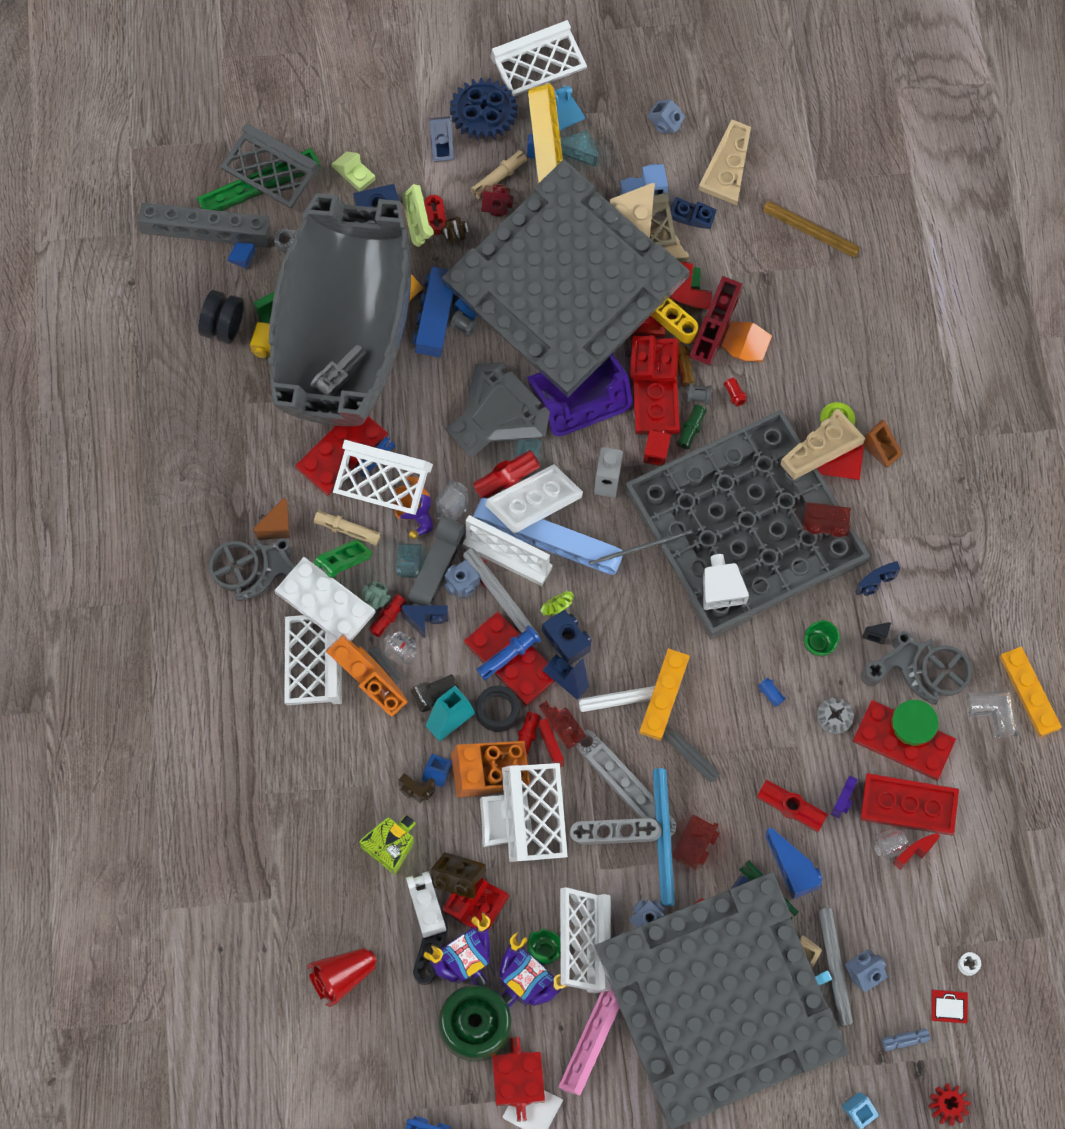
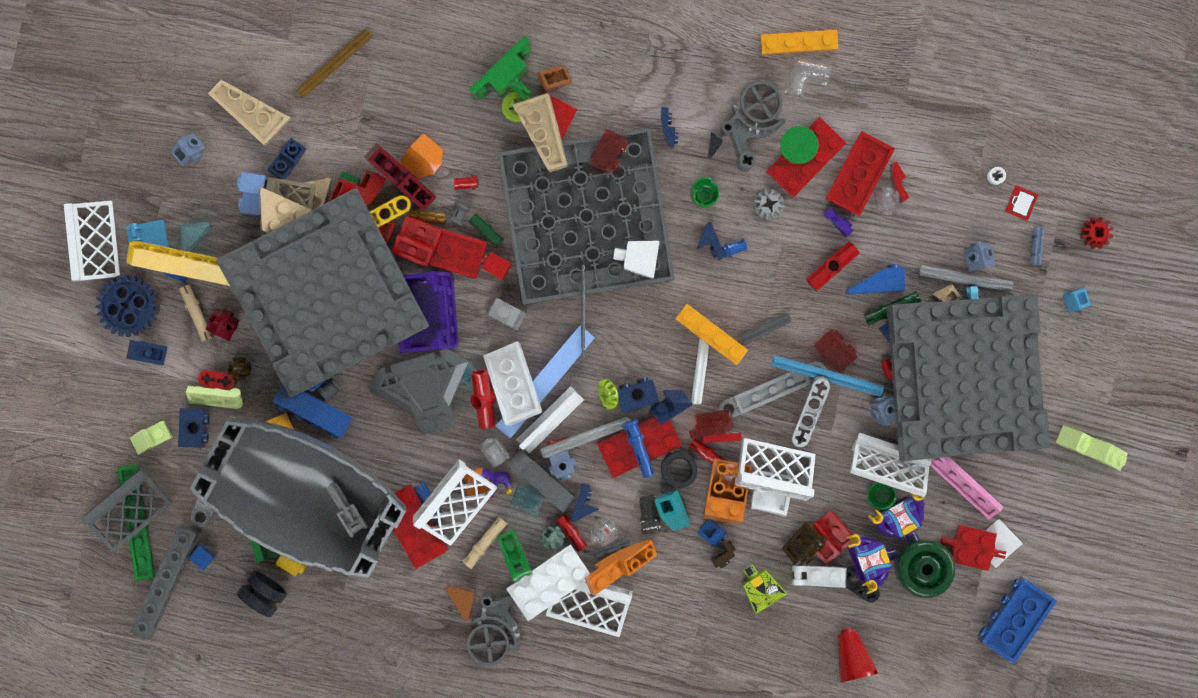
camera: 70 degrees left, 20 degrees up
(772, 660) = (709, 237): none -> dark blue slope
(869, 391) = (505, 74): none -> green brick

